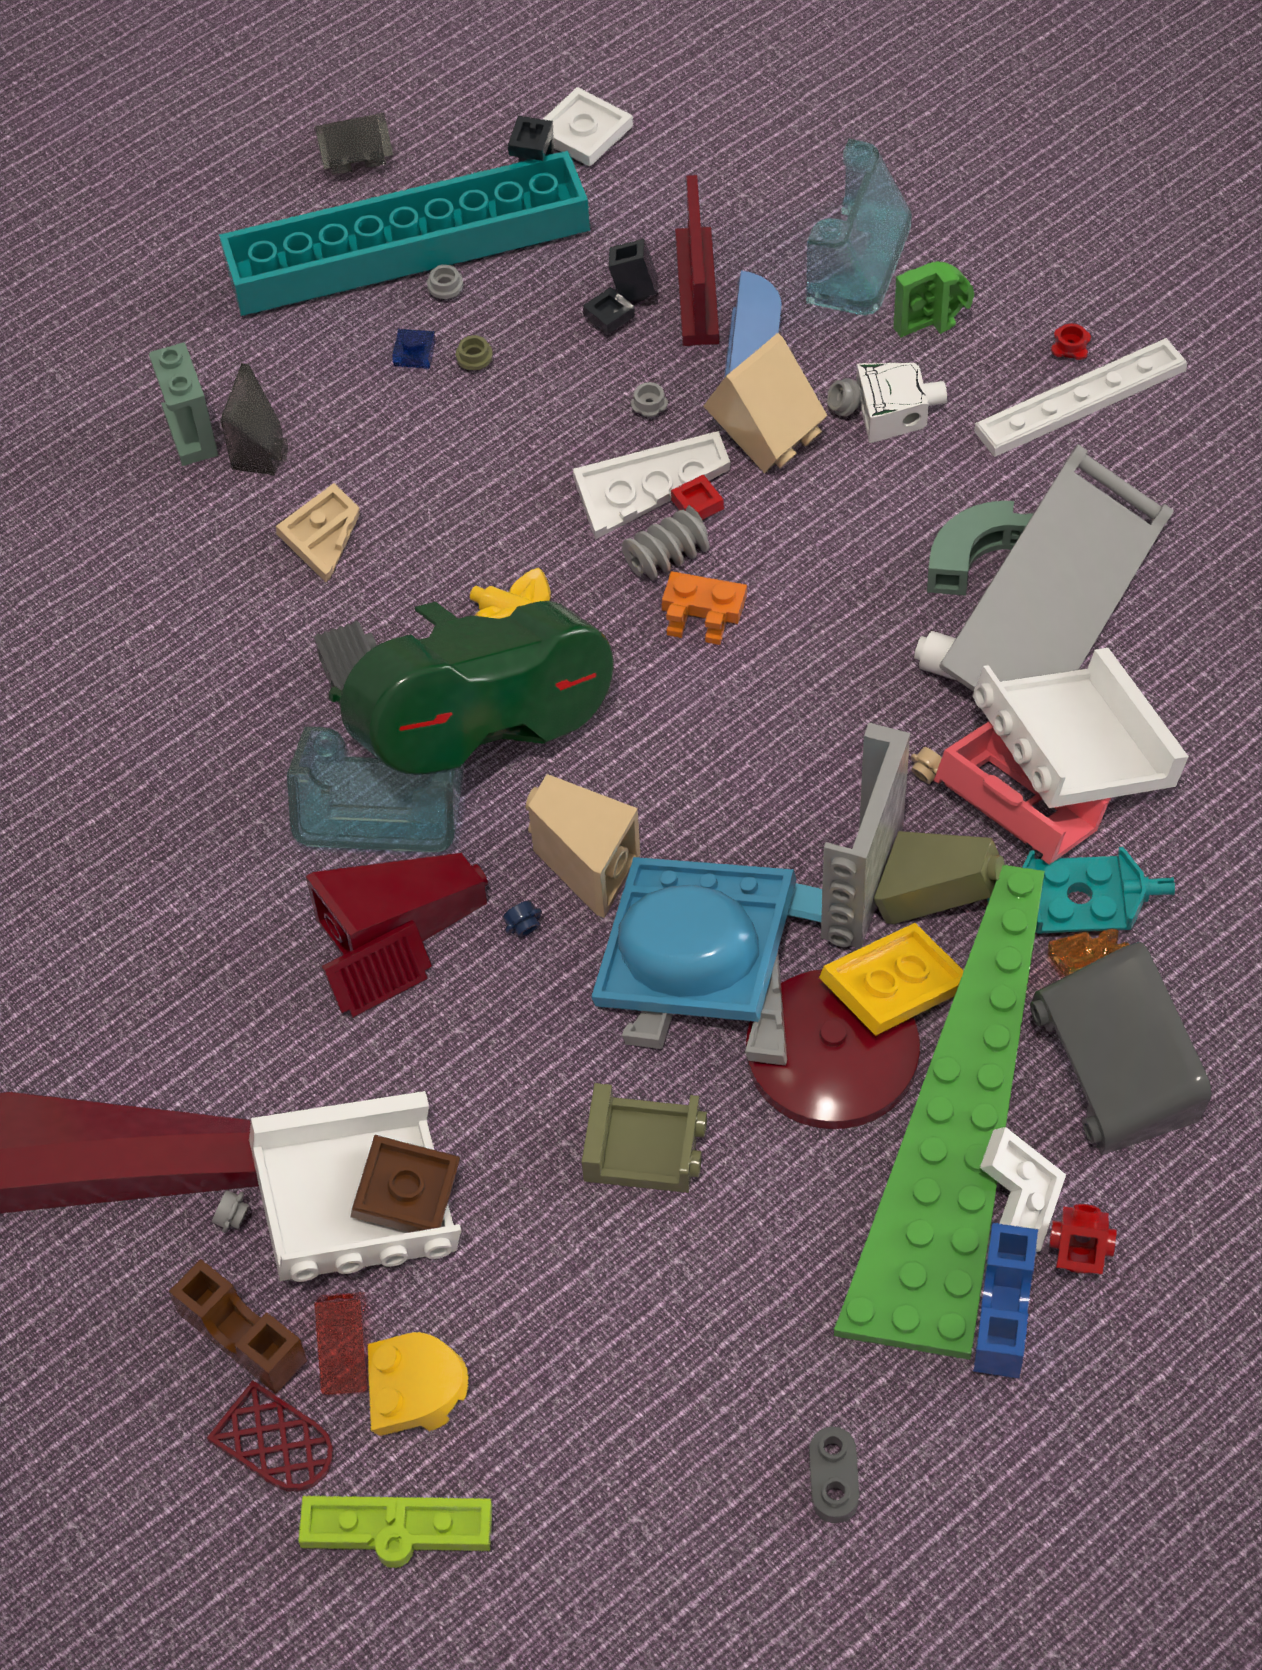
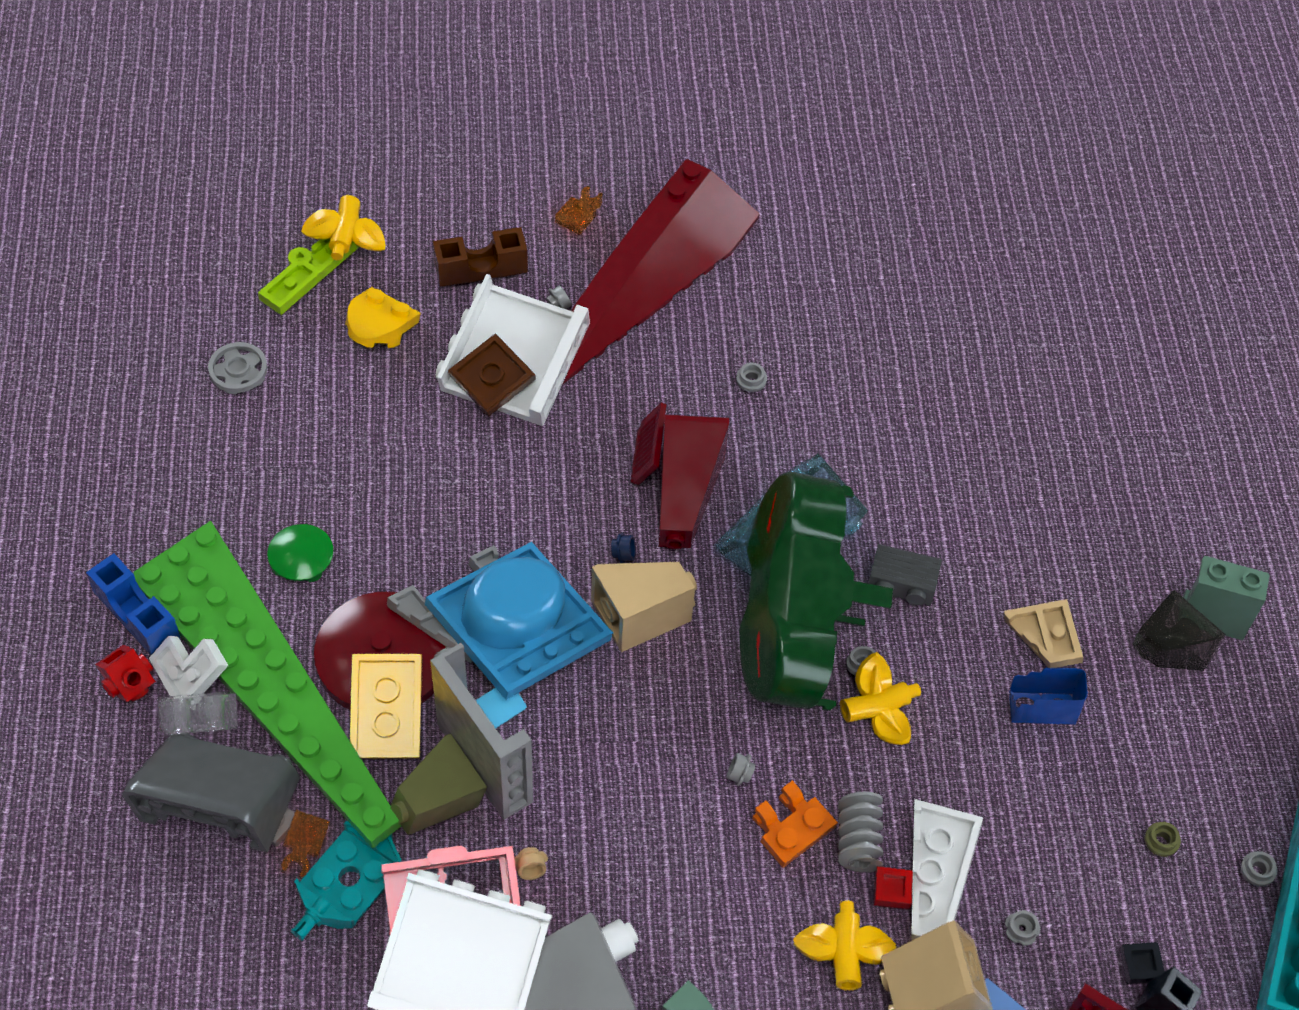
camera: 120 degrees right, 0 degrees up
(74, 1288) = (579, 213): none -> clear orange plate
(191, 941) = (753, 371): none -> light grey plate
(215, 1438) = (400, 237): dark red window -> none
(316, 1514) = (344, 228): none -> yellow plant
(341, 1342) = (441, 298): clear red bracket -> none
(396, 462) = (1060, 684): none -> blue piece
(414, 348) = (1199, 804): clear blue plate -> none
(608, 1487) = (237, 369): none -> light grey wheel
(642, 1142) = (417, 509): olive panel -> none
(684, 672) = (740, 769): none -> light grey plate
(784, 501) = (845, 945): none -> yellow plant
(790, 1213) = (300, 552): none -> green dish
(831, 1472) = (136, 465): dark grey plate -> none
(1063, 1127) = (197, 713): none -> clear brick

